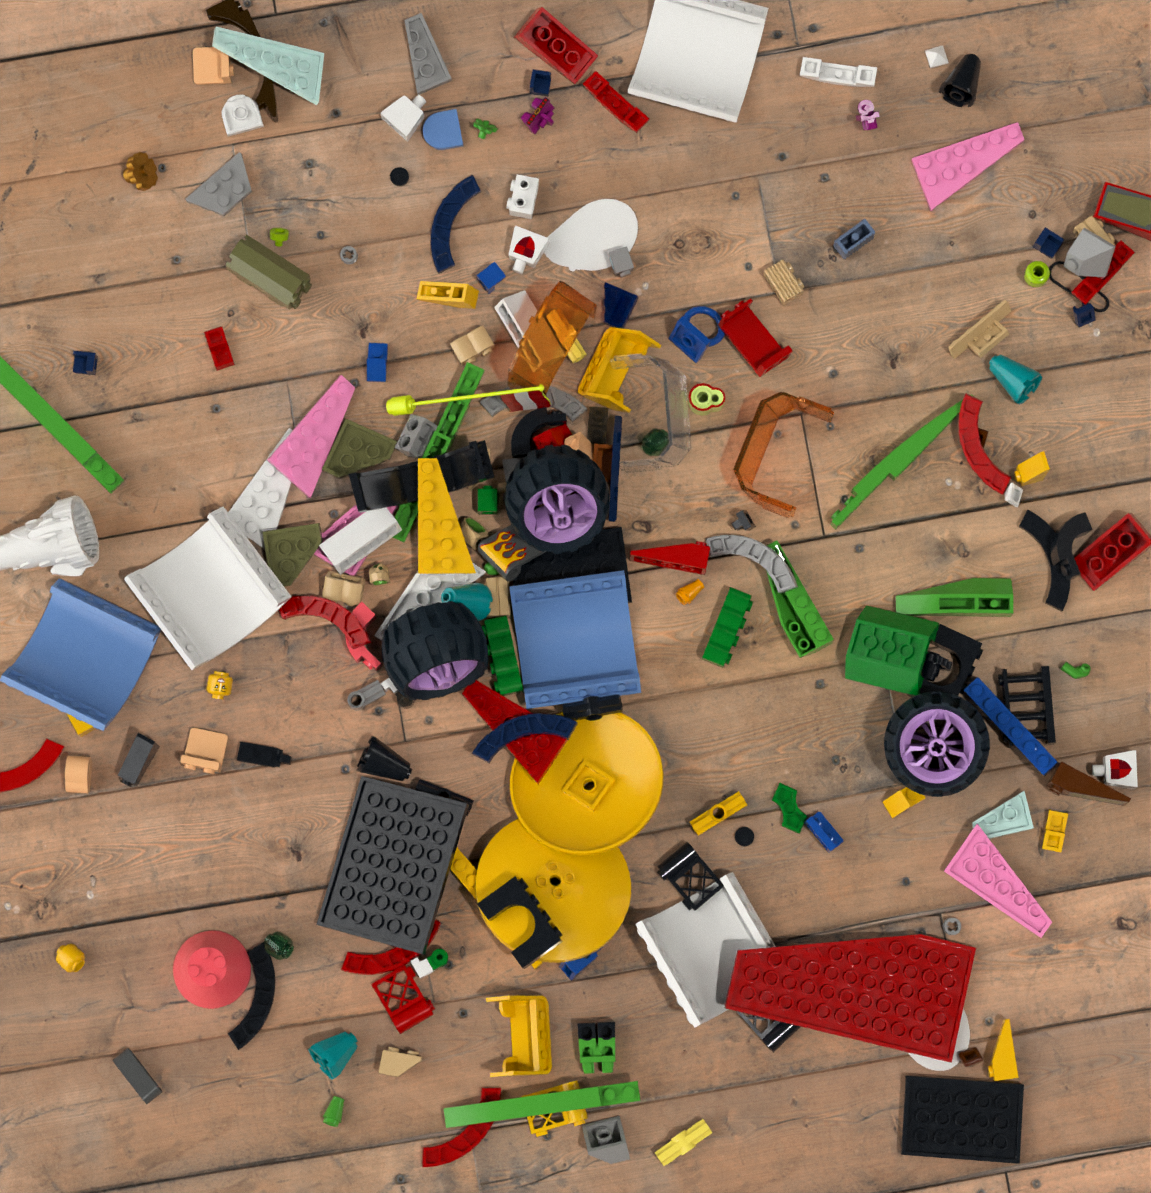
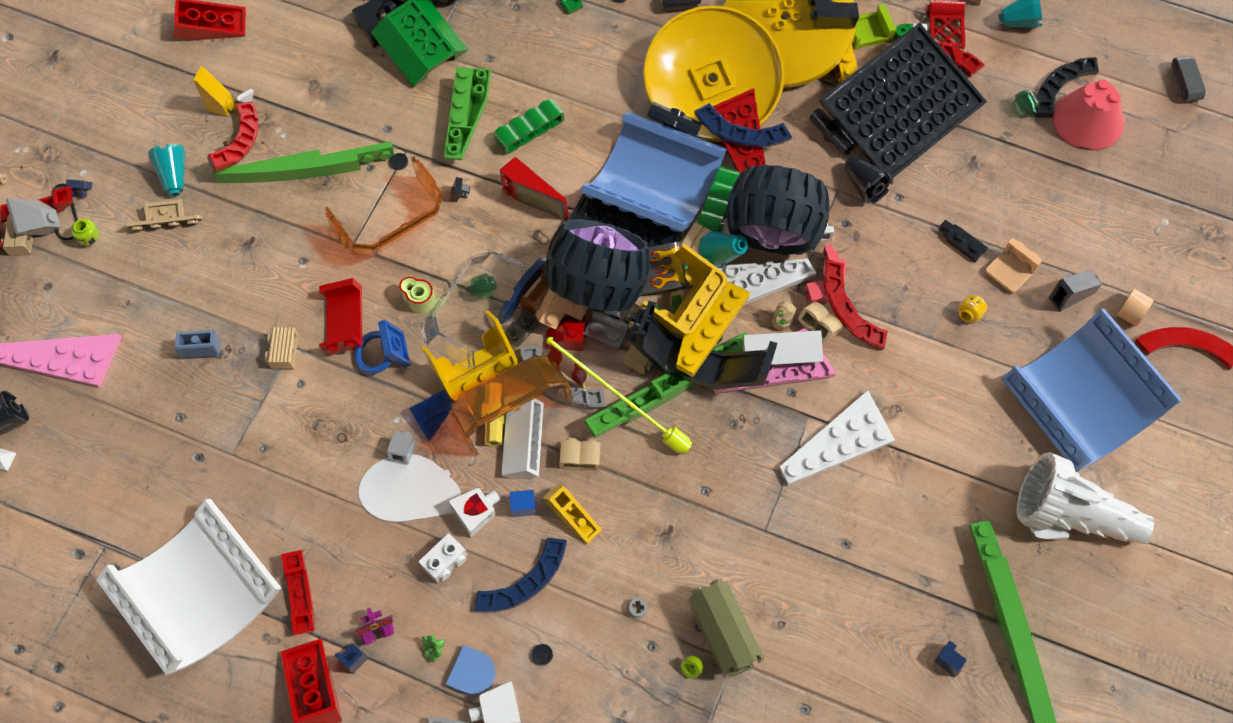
camera: 150 degrees left, 15 degrees down
(70, 958) = (1207, 181): yellow head -> none
(209, 590) = (945, 387): white panel -> none
(219, 348) = (811, 595): red slope -> none
(291, 549) = (850, 375): olive plate -> none
(309, 443) = (780, 456): bright pink wing -> none
(357, 450) = (738, 428): olive plate -> none
(368, 695) = (849, 234): light grey piece -> none
(377, 362) = (672, 495): blue slope -> none
(415, 436) = (679, 400): light grey brick -> none
(455, 522) = (706, 284): none -> yellow windscreen
(475, 946) = (874, 28): none -> lime panel
(529, 425) = (589, 354): black arch -> none
(688, 592) = (540, 165): light orange cone -> none
(728, 806) = (628, 13): yellow piece -> none
(757, 552) = (466, 157): light grey tile -> none
(822, 521) = (399, 161): none -> black piece
(838, 74) = (90, 493): white slope -> none
(868, 115) = (100, 435): hips -> none
(963, 598) = (341, 48): bright green wedge -> none
(1043, 535) = (252, 40): black tile -> none
(1048, 243) = (56, 255): dark blue panel -> none
(1062, 543) = (236, 41): black arch -> none

